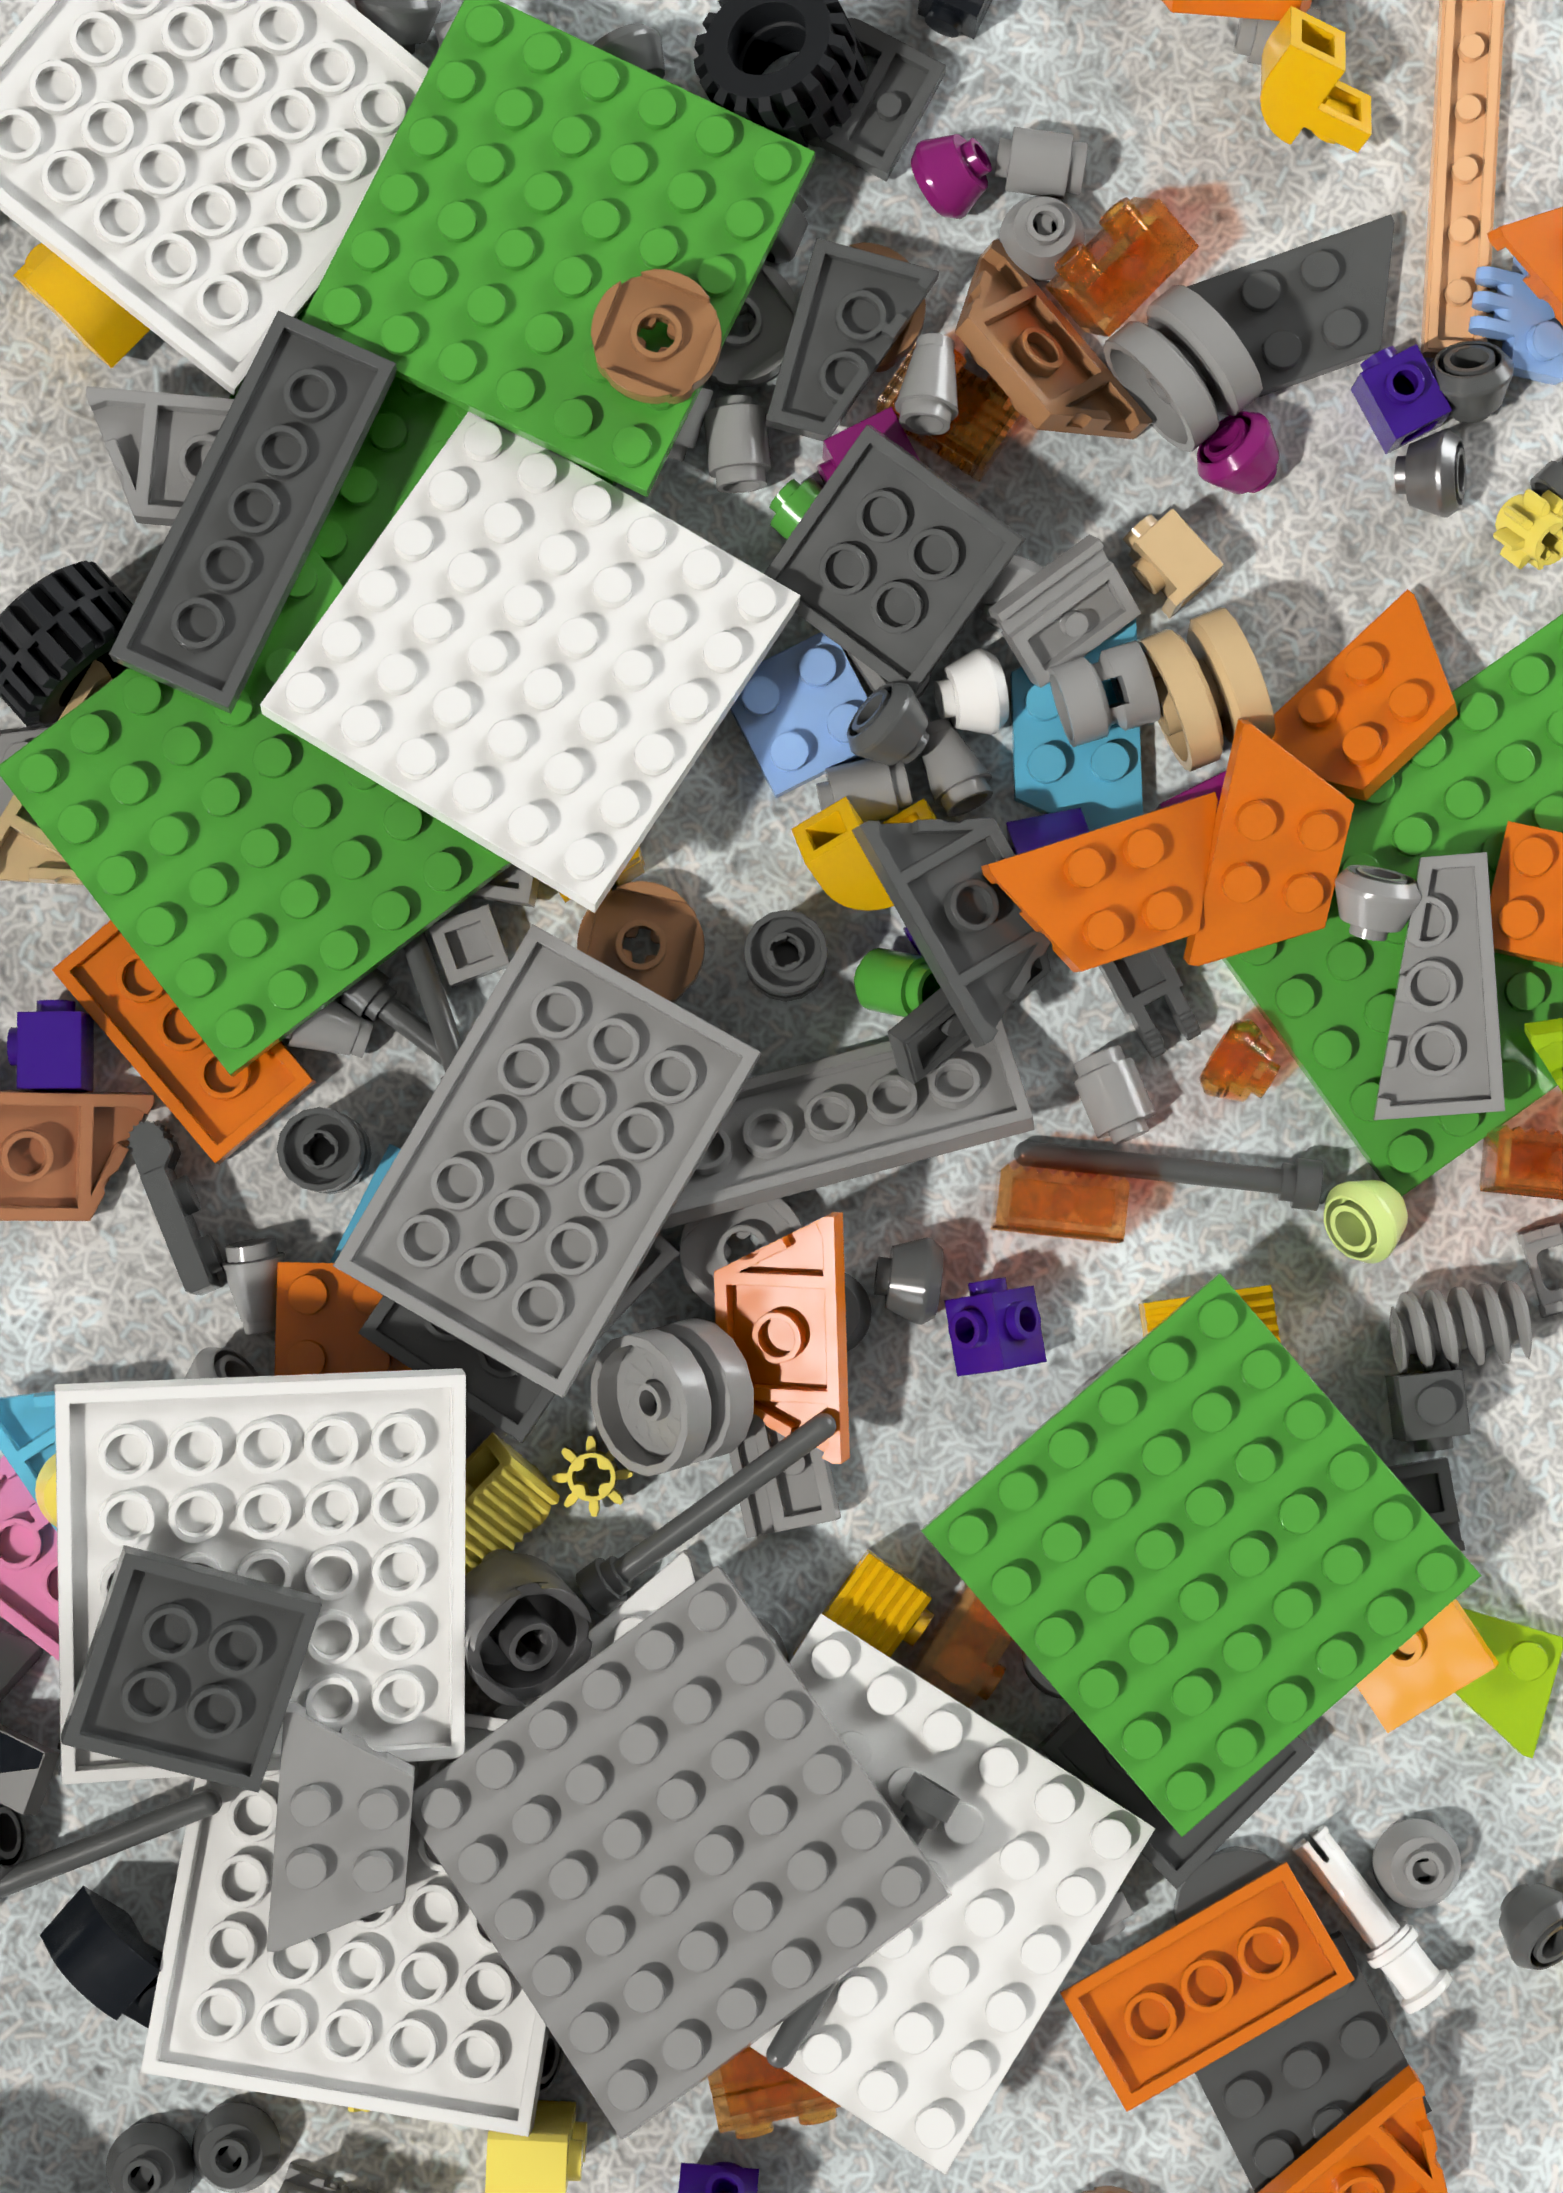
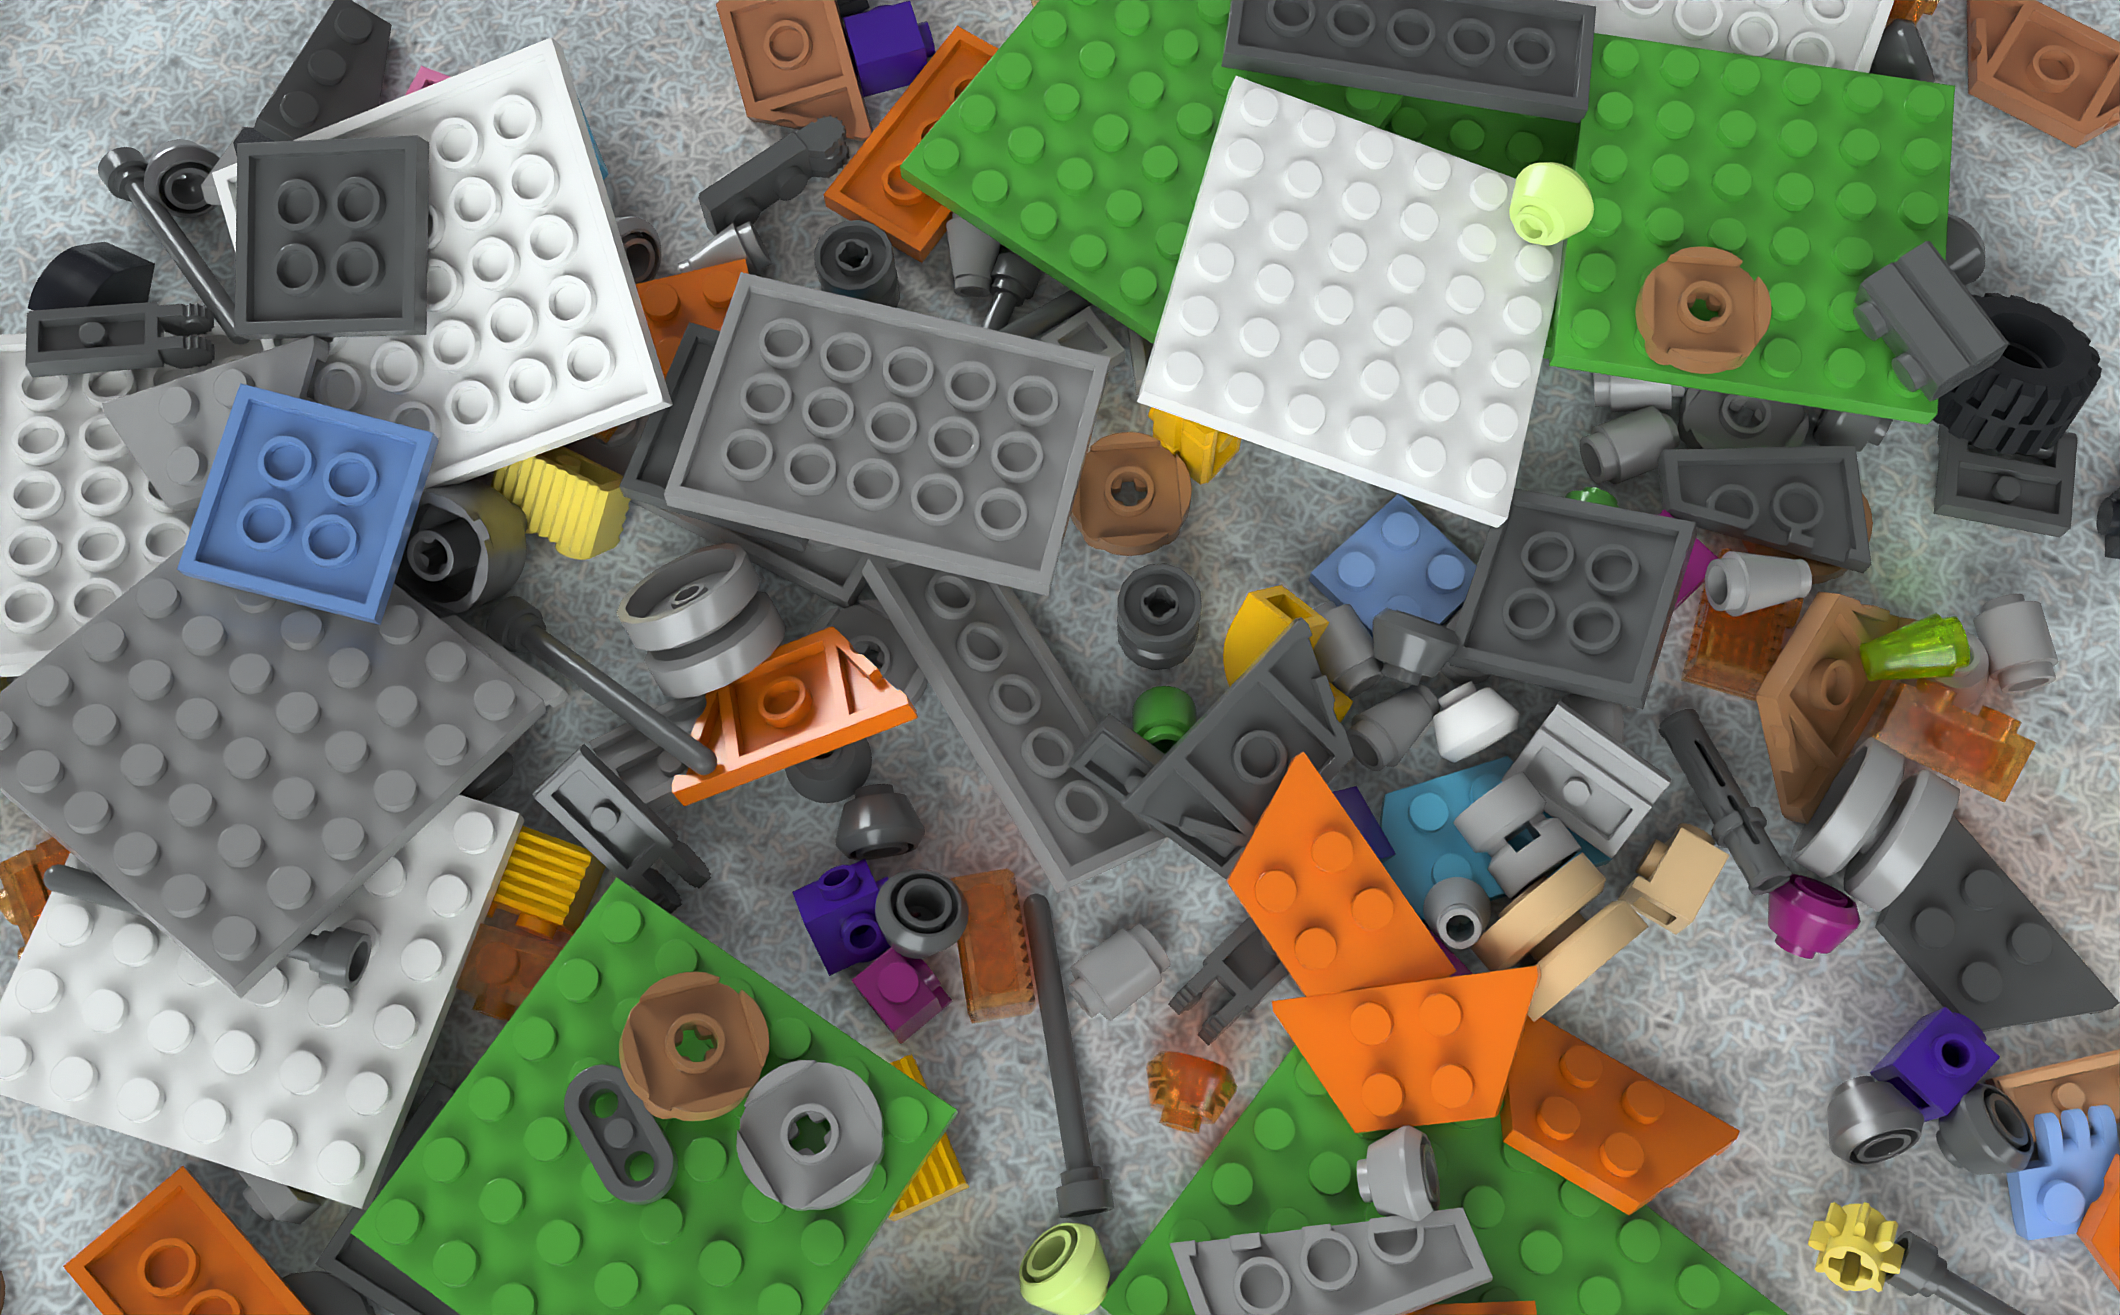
camera: 75 degrees right, 15 degrees down
(189, 1931) = (117, 338): none -> dark grey hinge
(468, 1748) = (309, 504): none -> medium blue plate
(494, 441) = (1550, 203): none -> yellowish green cone
(580, 1489) = (600, 579): light yellow gear -> none
(738, 132) = (1927, 322): none -> dark grey brick
(854, 1524) = (619, 827): none -> dark grey hinge
(951, 173) = (1968, 559): magenta cone -> none
(1029, 1244) = (921, 912): none -> dark grey cone
(1036, 265) = (1918, 650): none -> clear neon green cone
(1078, 1298) = (901, 992): none -> magenta brick
(1091, 1519) = (673, 1083): none -> medium nougat plate
(1116, 491) = (1734, 820): none -> dark grey pin
(1157, 771) = (1453, 898): none -> light grey cone
(1170, 1573) = (621, 1137): none -> dark grey plate
(1250, 1424) = (769, 1125): none -> light grey plate

